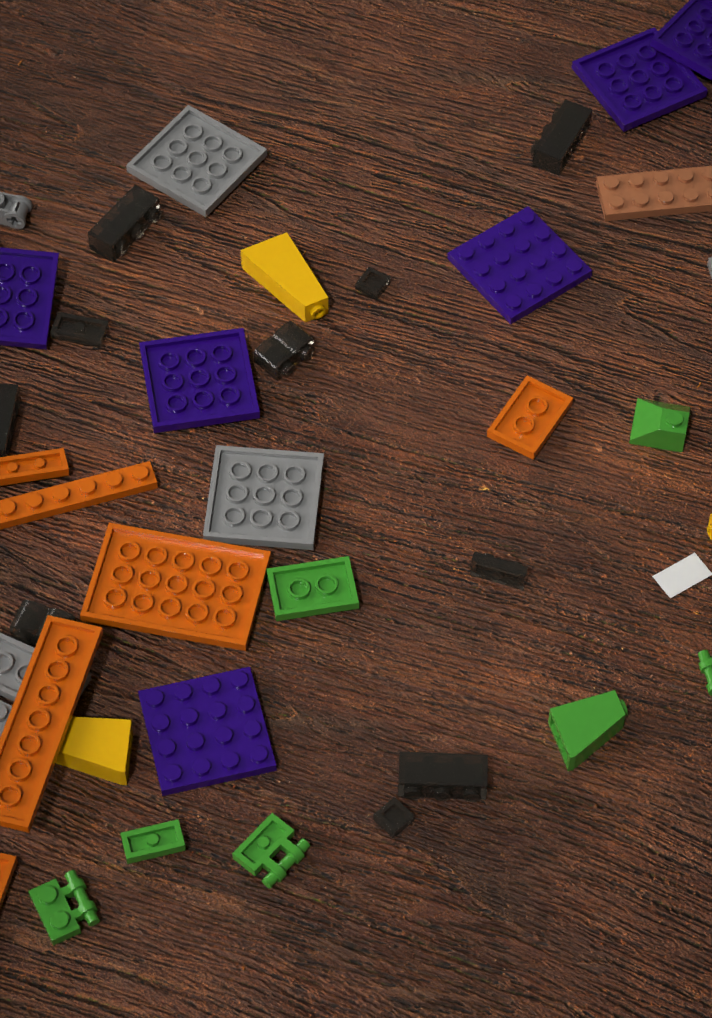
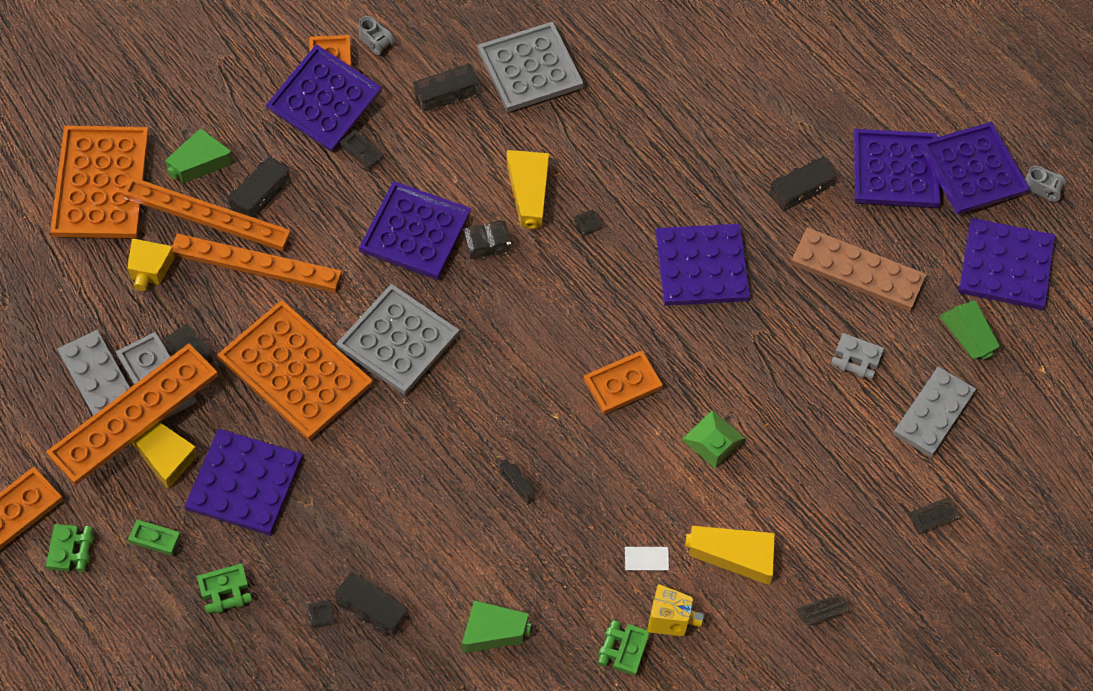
camera: 30 degrees right, 5 degrees up
(312, 588) = (383, 422): bright green plate -> none

